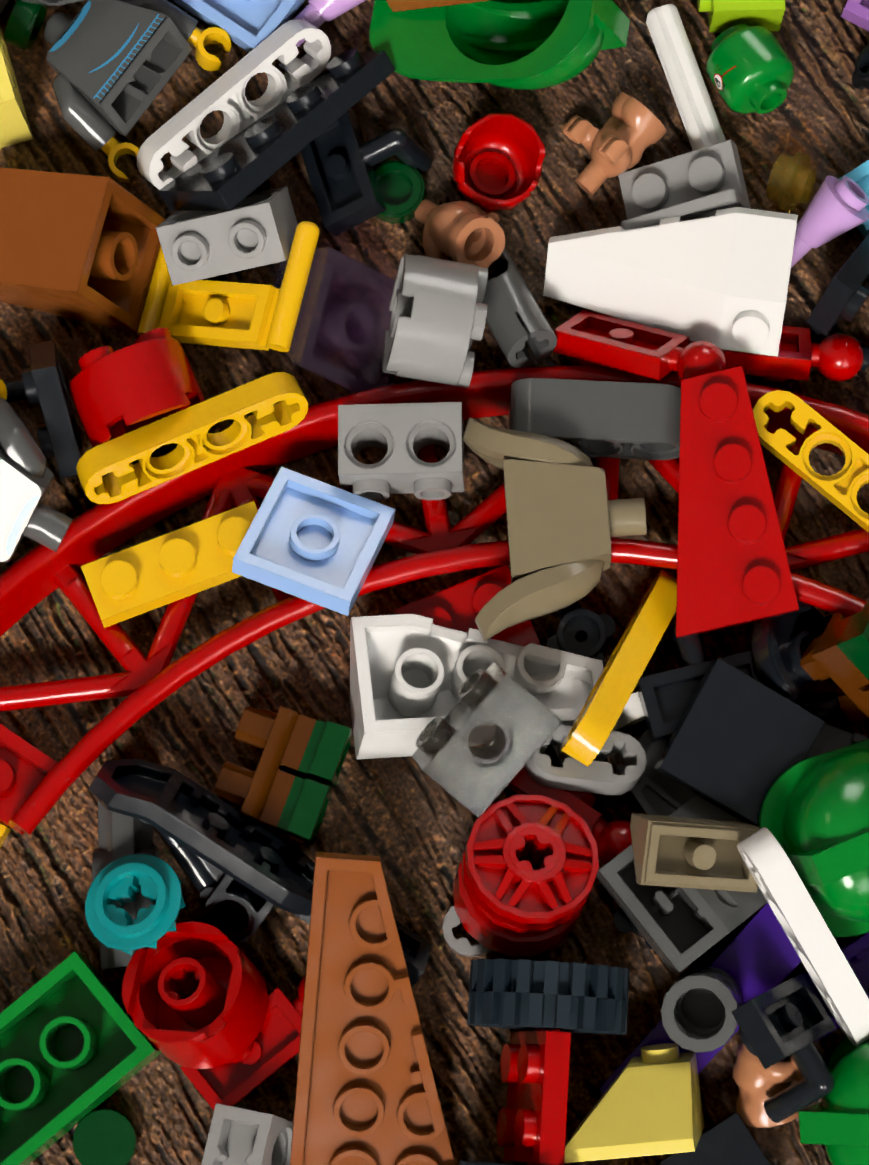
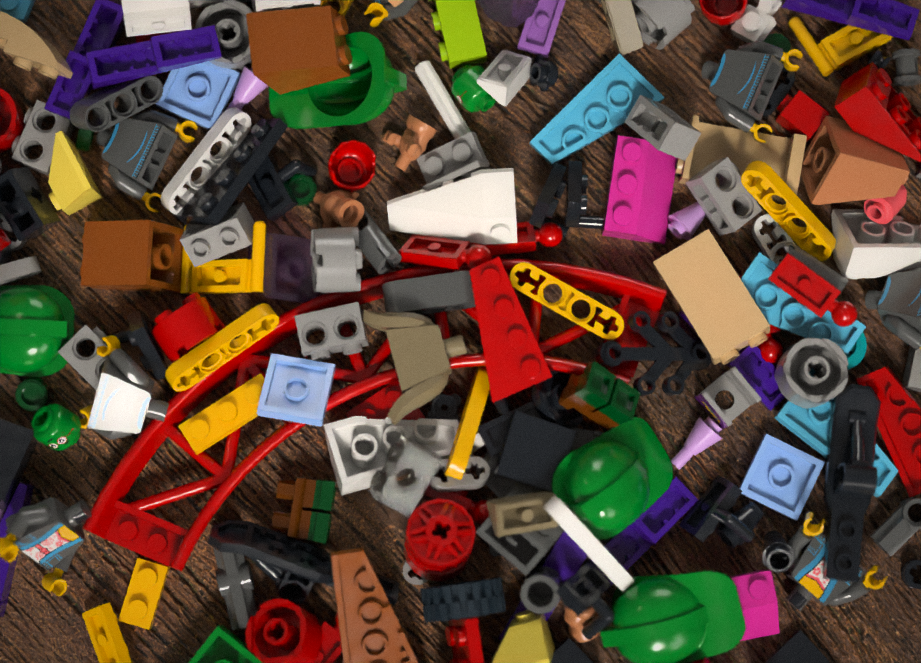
camera: 15 degrees left, 5 degrees up
(119, 885) = (233, 586): teal gear -> none
(791, 181) = (507, 144): clear yellow plate -> none
(813, 56) = (505, 76): none -> white slope
(832, 212) = (532, 158): lavender cone -> none

